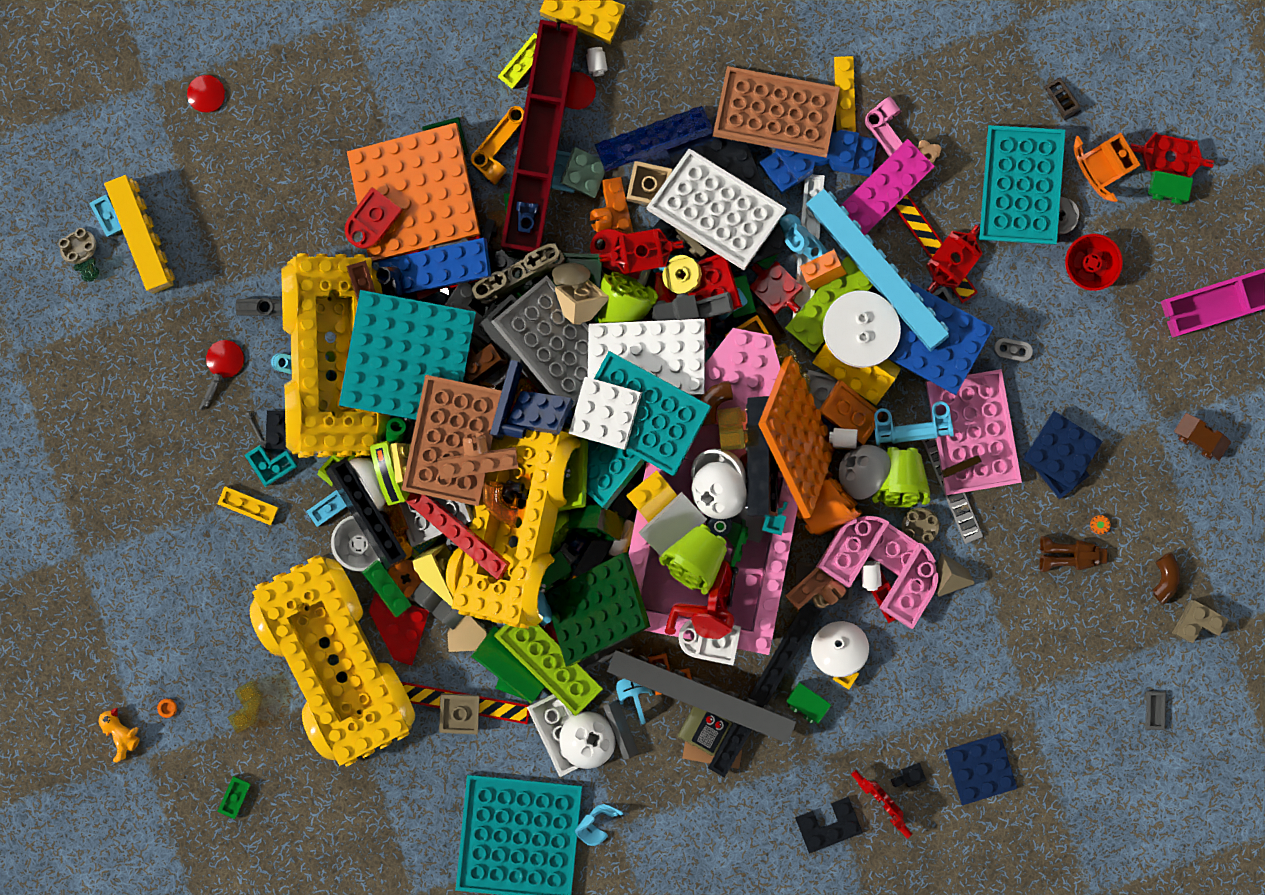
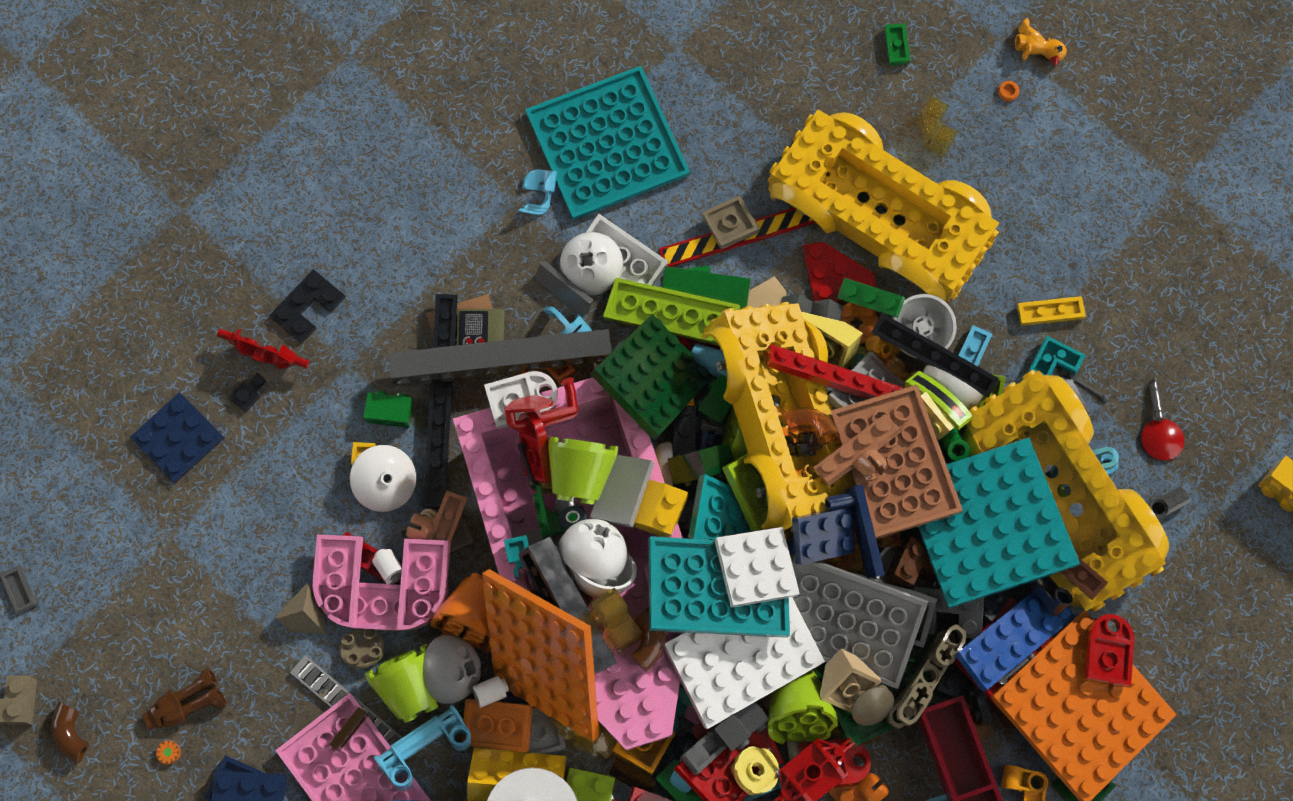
camera: 150 degrees right, 15 degrees down
(528, 211) = (955, 749): dark blue plate -> none

